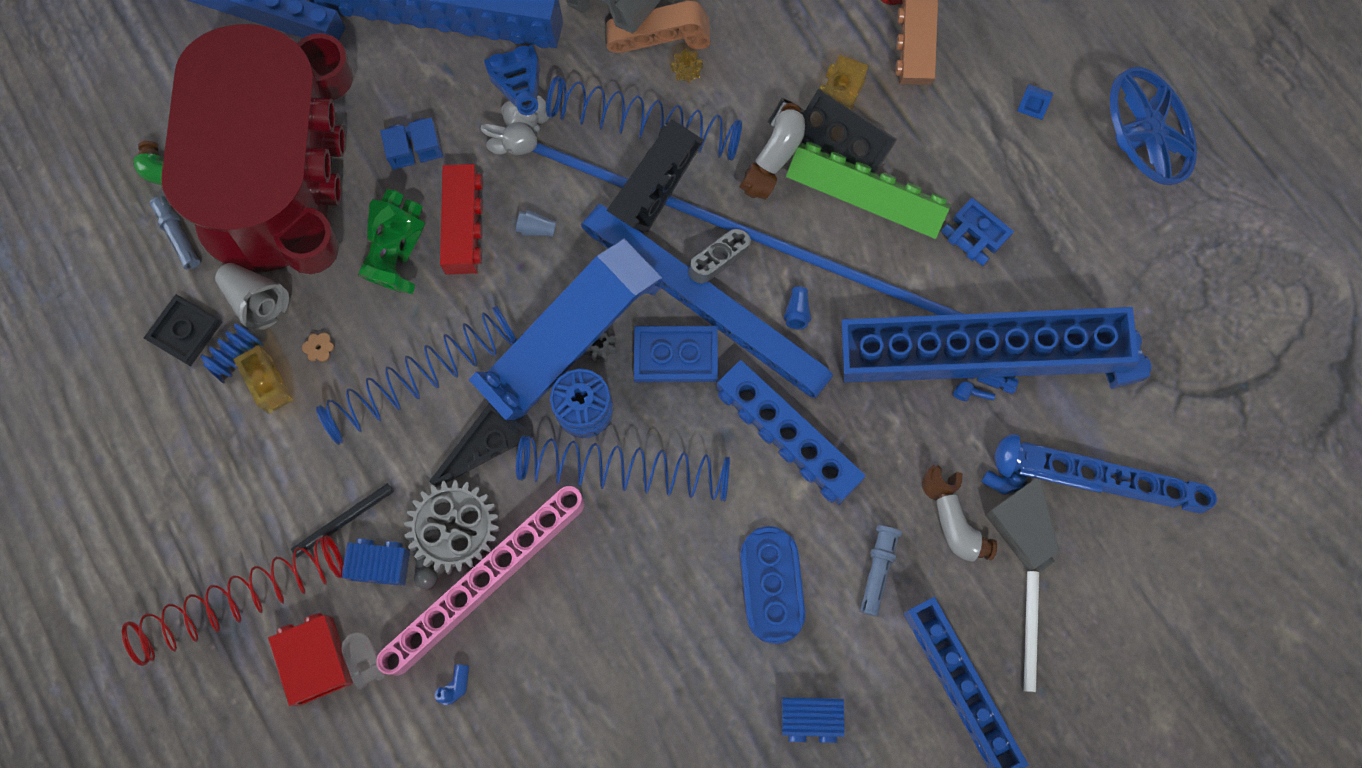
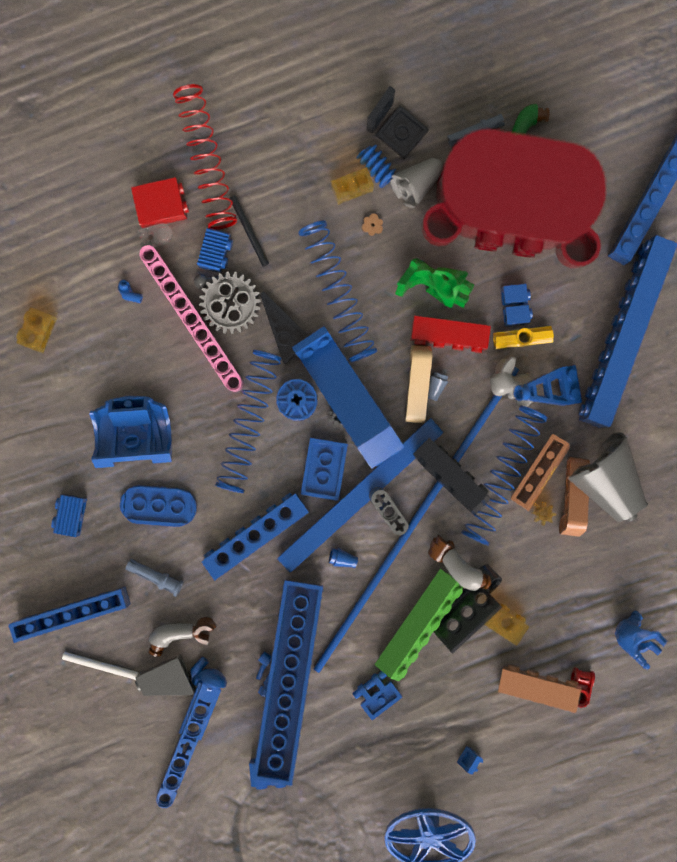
camera: 90 degrees right, 15 degrees up
(150, 356) = (380, 110): none -> black tile
(452, 115) = (511, 339): none -> yellow piece
(533, 243) = (418, 383): none -> tan beam
(632, 74) = (540, 472): none -> nougat brick
(666, 642) = (131, 431): none -> blue piece

